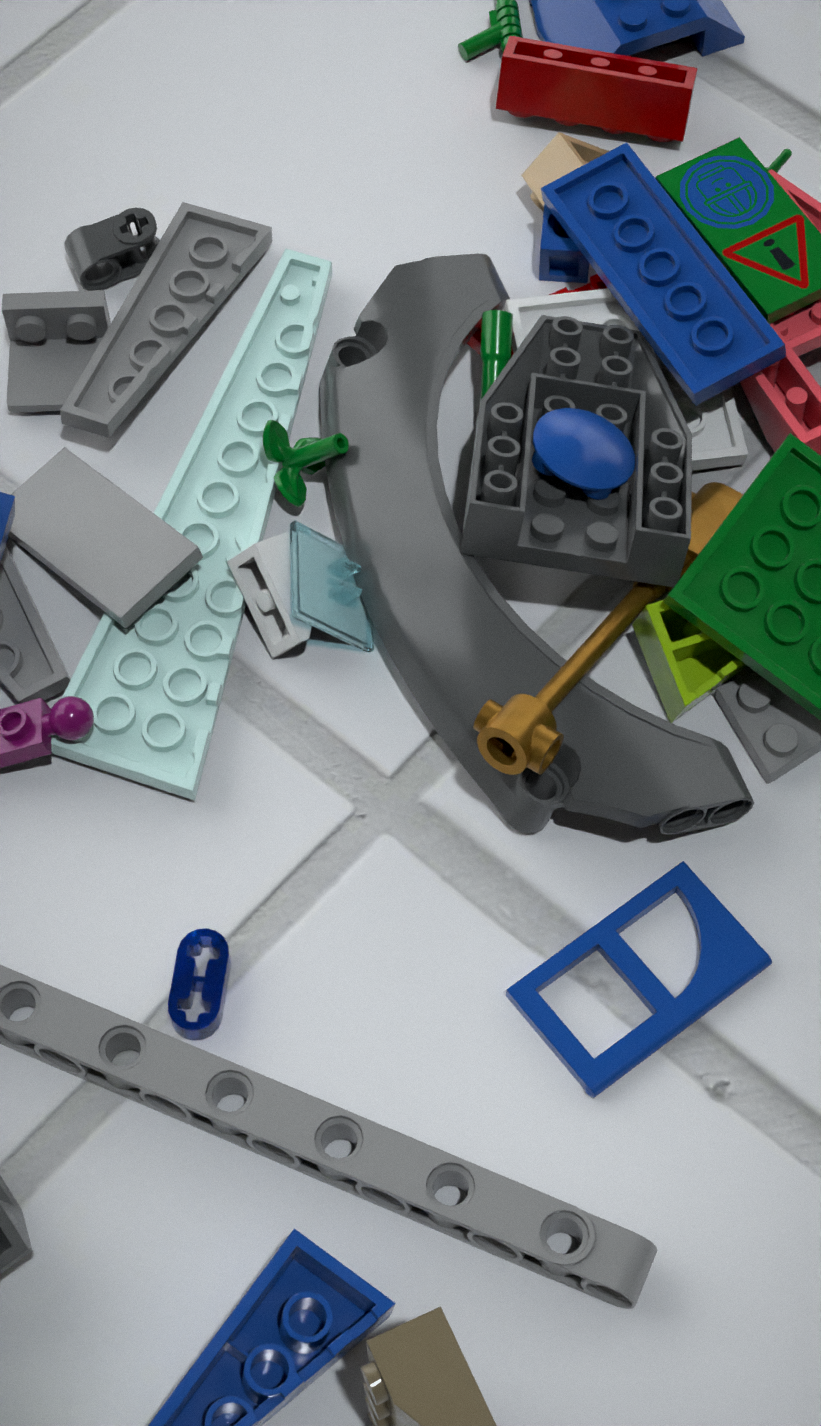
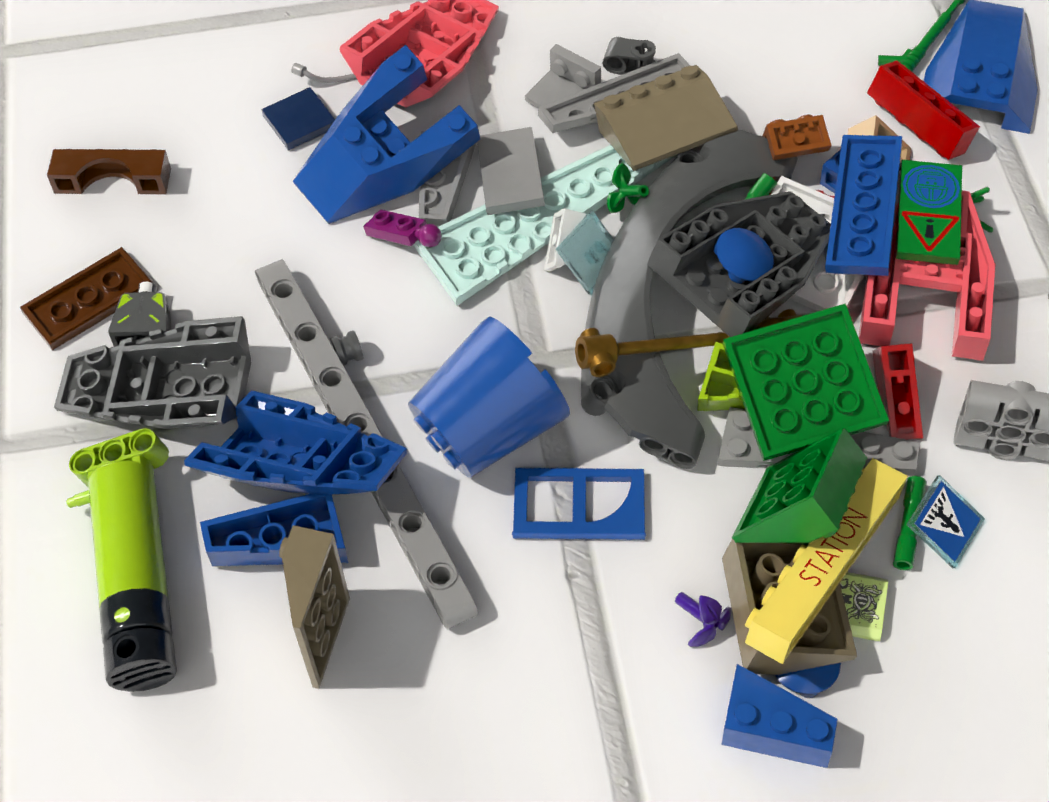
camera: 40 degrees right, 5 degrees down
(94, 978) = (347, 347): none -> dark grey wheel
(177, 1207) = (297, 451): none -> blue wedge
(187, 982) = (392, 380): clear blue beam -> none
(264, 315) = (664, 117): none -> dark tan slope
(410, 917) = (487, 400): none -> blue cone
(483, 228) = (797, 136): none -> dark orange bracket

